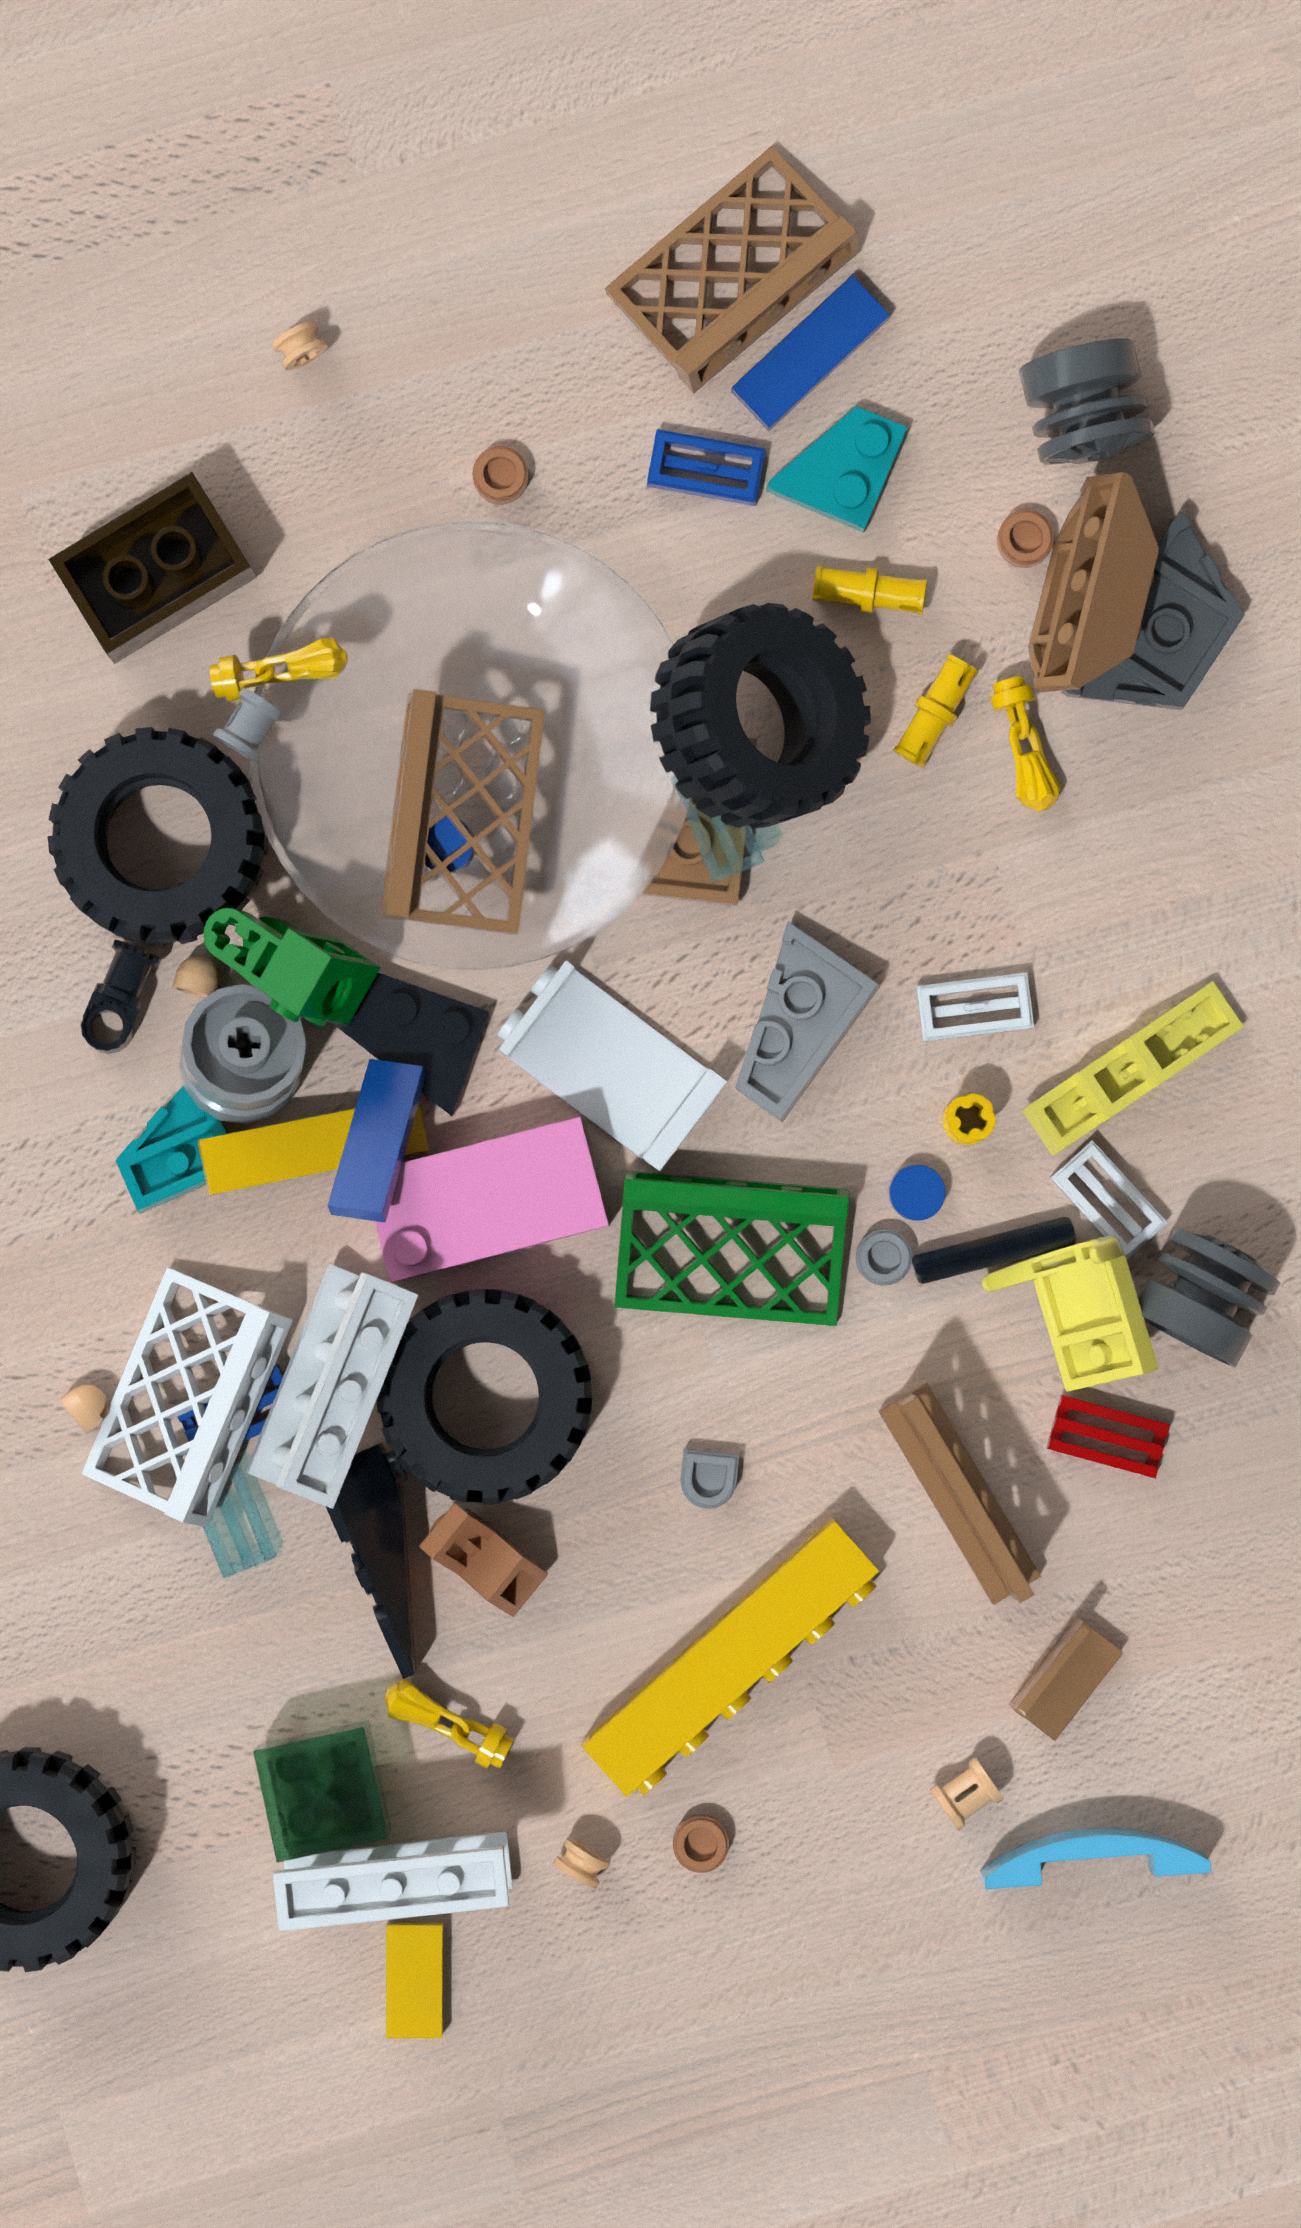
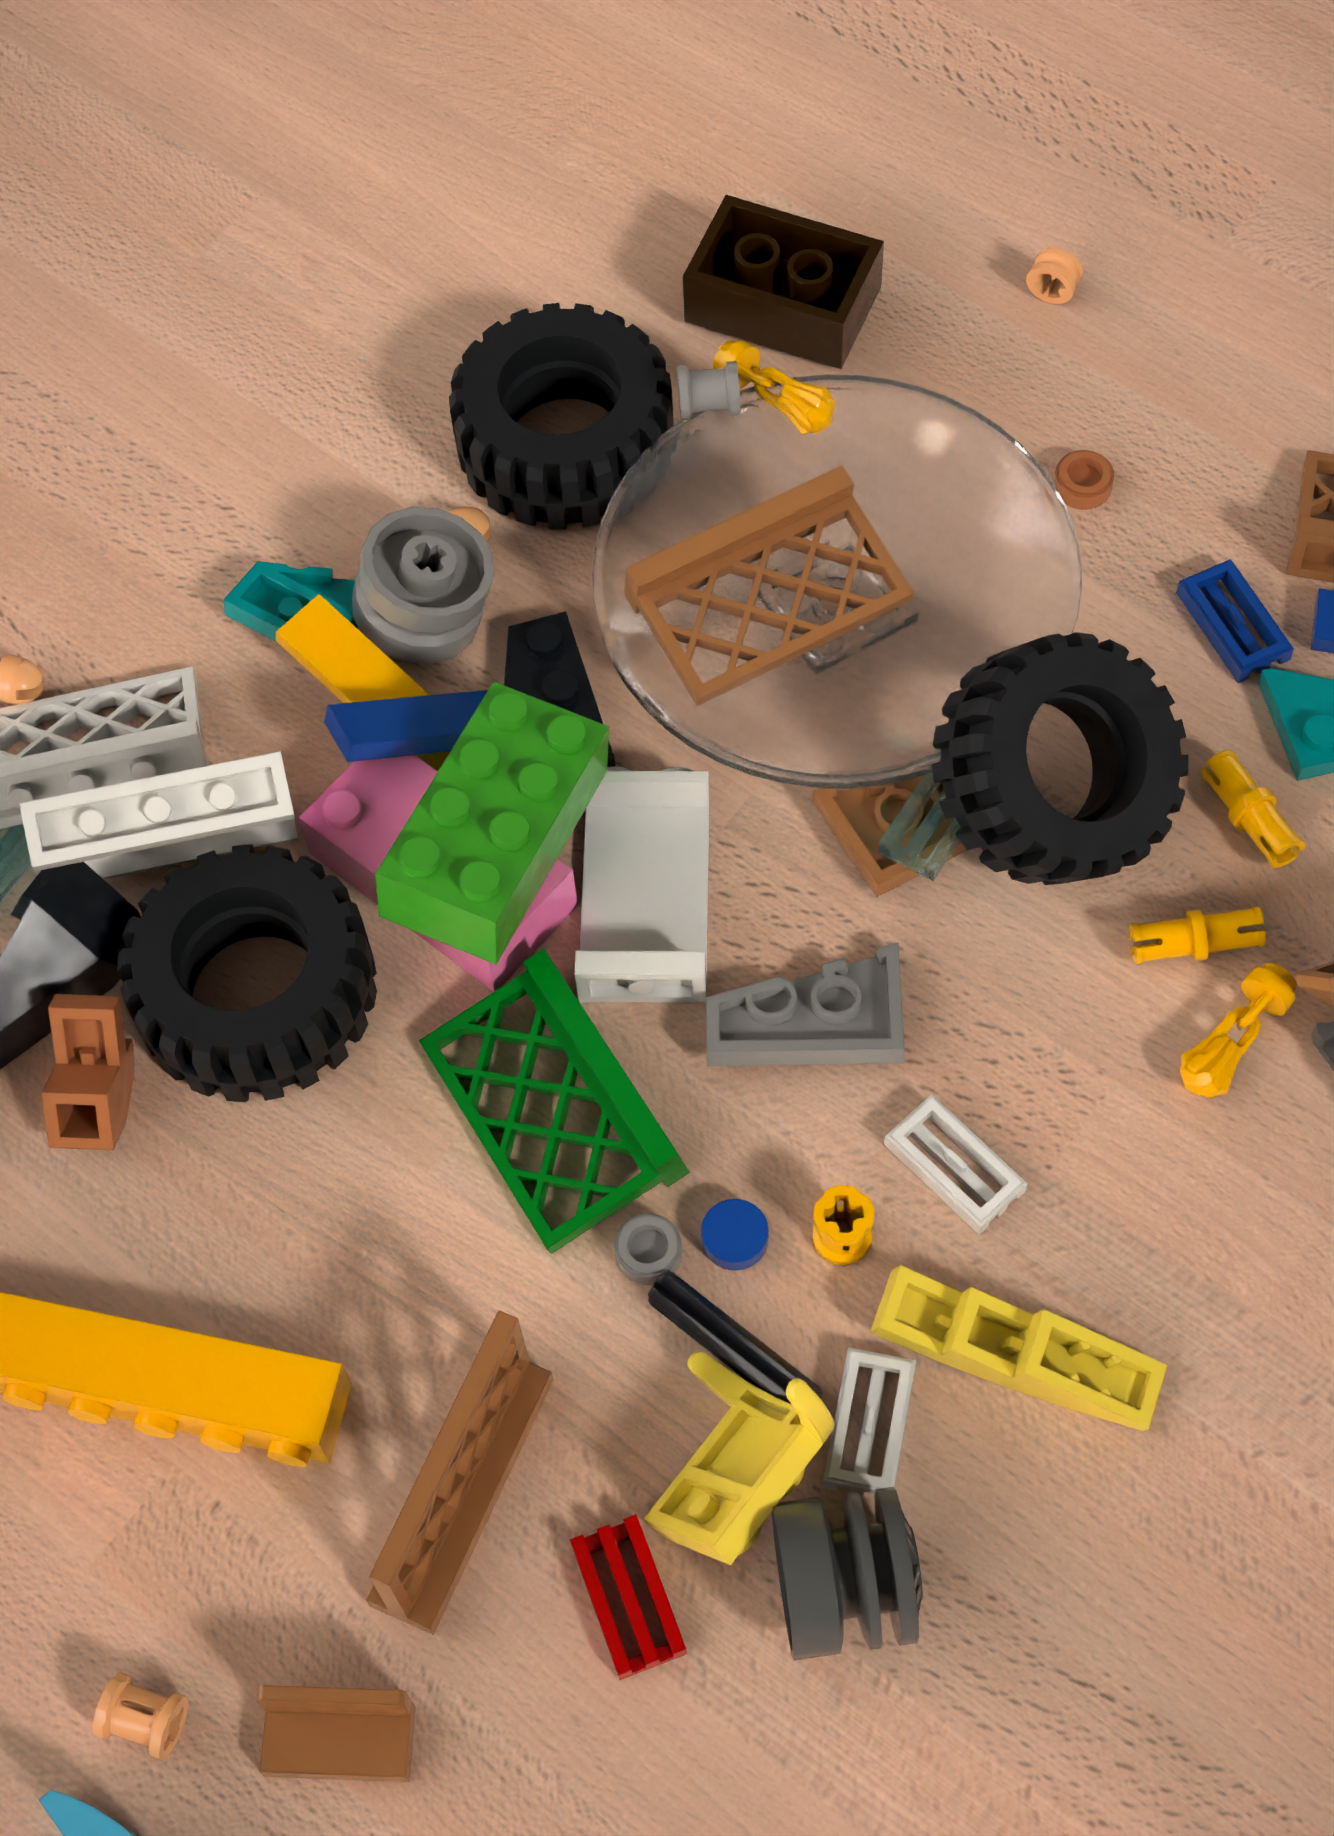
camera: 60 degrees right, 25 degrees down
(119, 994) = (404, 483): black connector -> none
(298, 970) = (527, 562): green brick -> none
(445, 840) = (732, 588): blue tile -> none
(517, 1151) = (492, 822): none -> bright green brick
(708, 1477) = (311, 1237): light grey tile -> none

